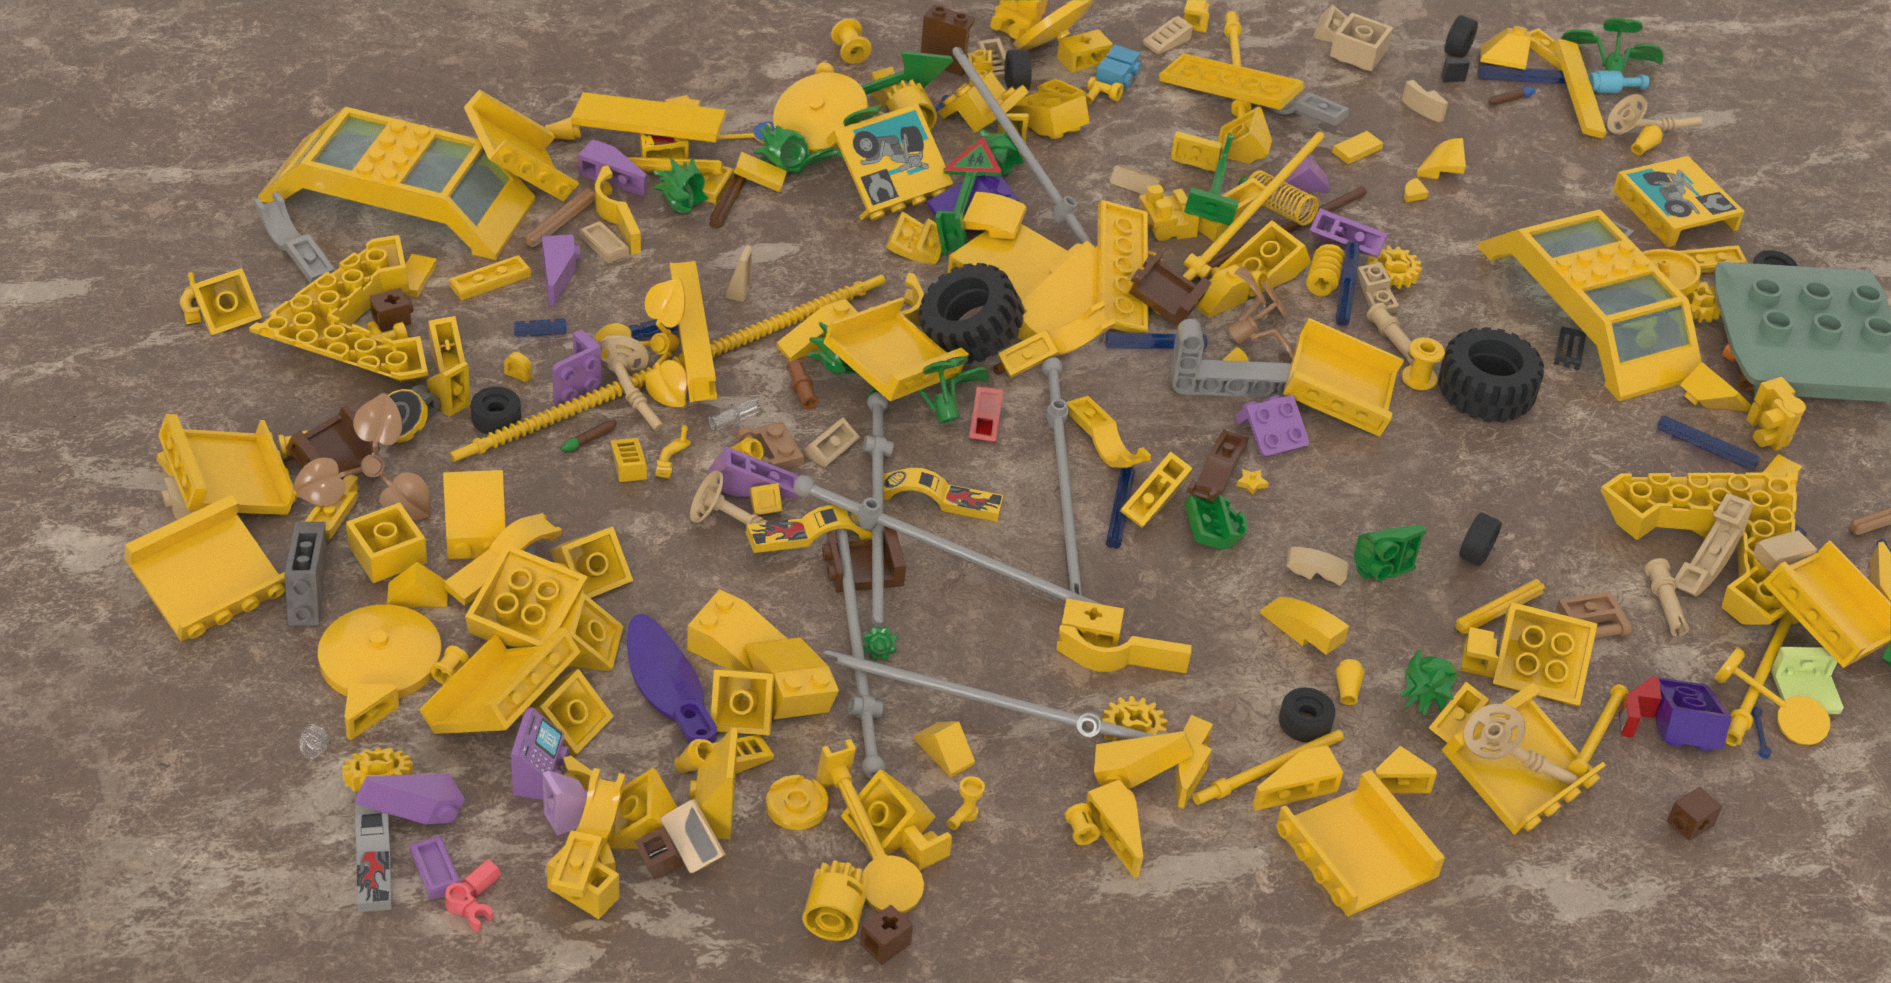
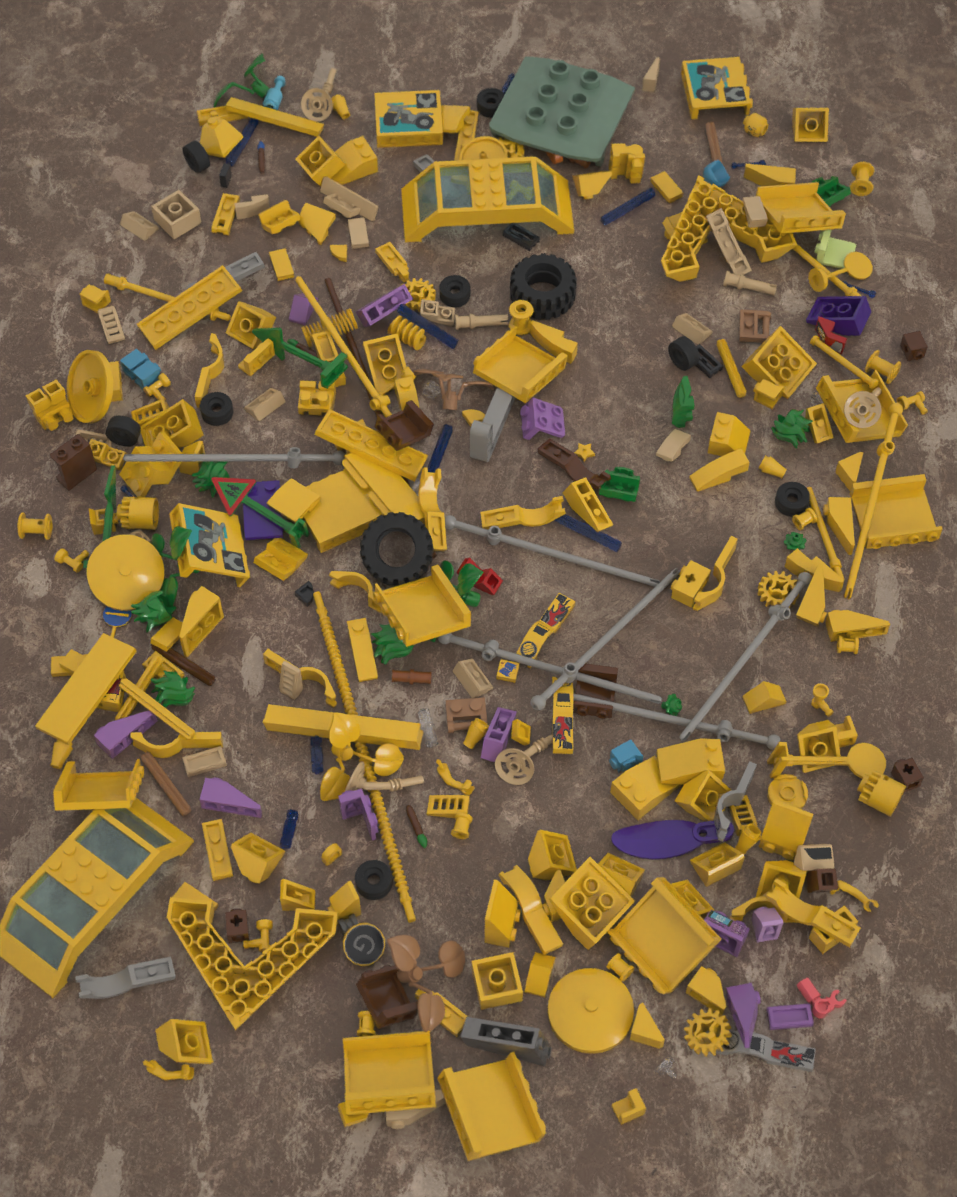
camera: 65 degrees left, 15 degrees up
(247, 717) = (629, 1107): none -> yellow panel
(448, 754) = (707, 989): none -> yellow slope
(488, 304) = (256, 857): none -> yellow slope
(602, 472) = (461, 825): none -> yellow bush
(644, 739) = (717, 863): none -> yellow slope
(645, 175) = (157, 709): none -> yellow axle
(648, 925) = (856, 893): none -> yellow piece
(753, 311) = (307, 673): none -> yellow piece
(759, 731) = (731, 798): none -> light grey piece
(775, 606) = (625, 756): none -> dark azure window
(783, 182) = (201, 617): none -> yellow slope
(857, 473) = (508, 671): none -> yellow tile
(878, 268) = (305, 593): none -> black tile
(1101, 140) = (216, 399): none -> black tyre
(1145, 121) = (211, 371): none -> yellow piece
(1232, 730) = (795, 541): none -> green plant
(1279, 734) = (804, 519): none -> yellow bush
(1373, 620) = (728, 435): none -> yellow slope
(1393, 83) = (225, 214): none -> yellow plate
(1411, 411) = (553, 340): none -> yellow slope
(1425, 123) = (278, 217): none -> yellow bracket
(1427, 301) = (454, 299): none -> black tyre
(1434, 236) = (393, 261): none -> yellow hinge
(1451, 790) = (883, 451): none -> yellow bar
(1457, 200) = (358, 233): none -> tan tile
(1486, 588) = (705, 366): none -> black tile
(1494, 176) = (346, 201): none -> tan bracket
(1533, 133) = (319, 160): none -> yellow slope
(1542, 551) = (691, 328): none -> tan slope
(1563, 168) = (358, 161): none -> yellow slope
(1594, 838) = (917, 399): none -> yellow piece
(1620, 788) = (883, 367): none -> yellow hose
(1705, 235) = (453, 117): none -> yellow slope
(1838, 517) = (716, 174): none -> dark azure hair

